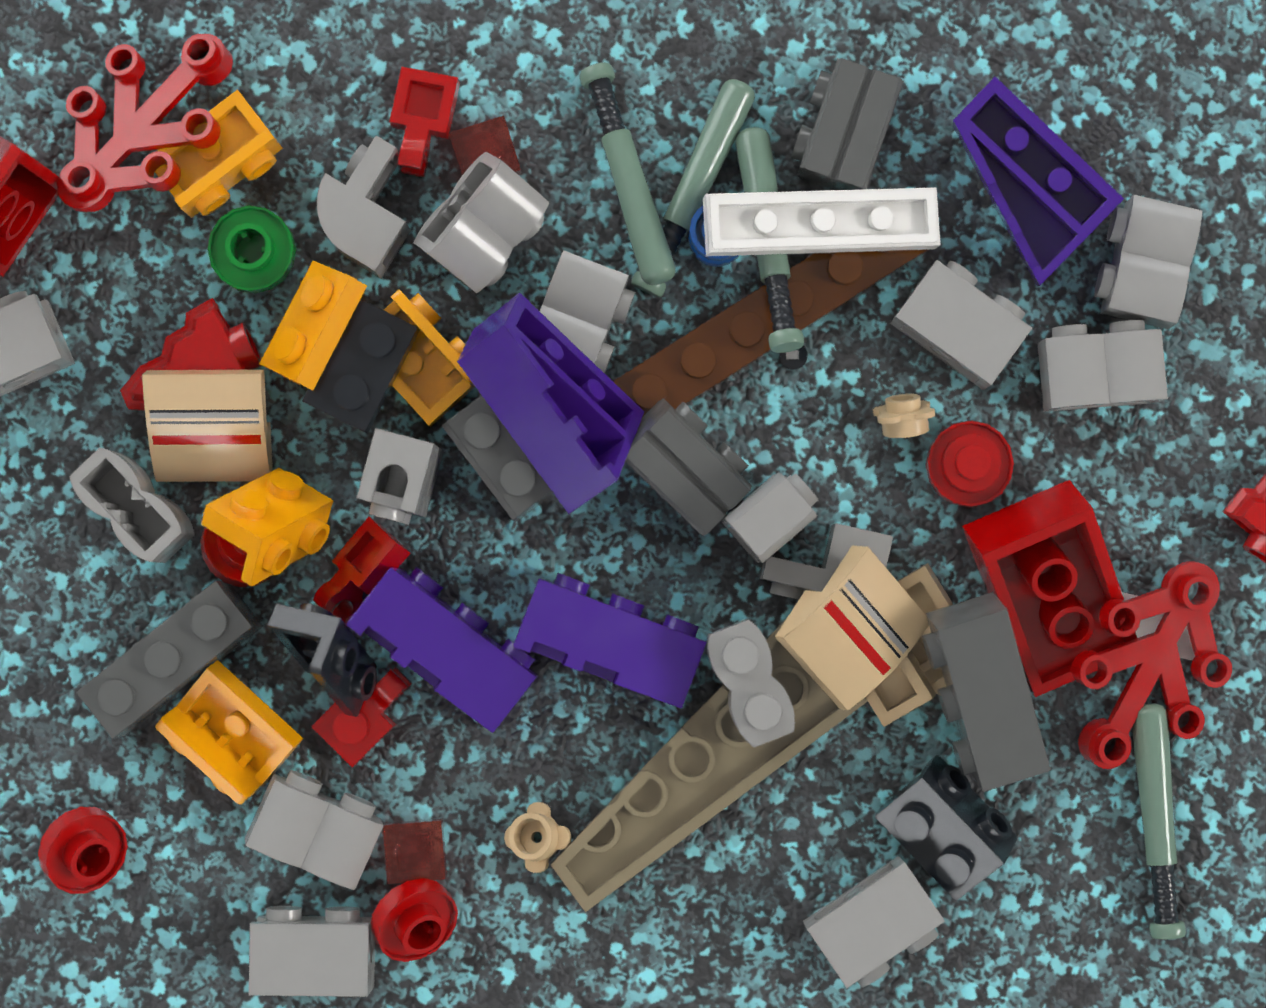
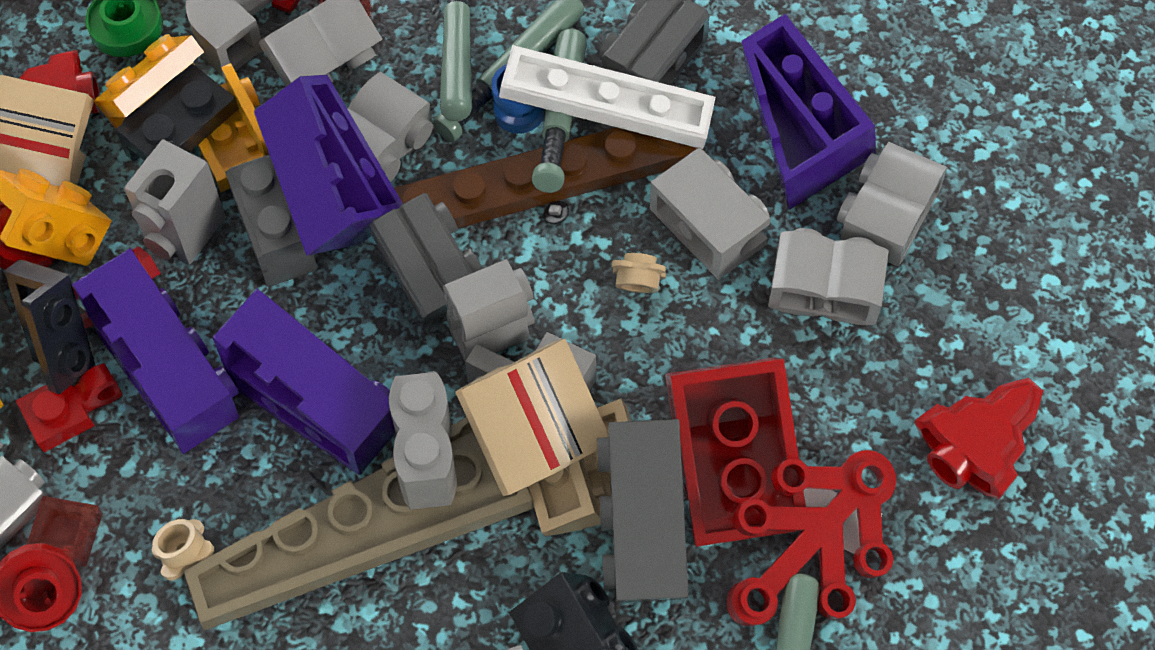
camera: 10 degrees right, 25 degrees down
(969, 464) = (687, 326): red plate -> none

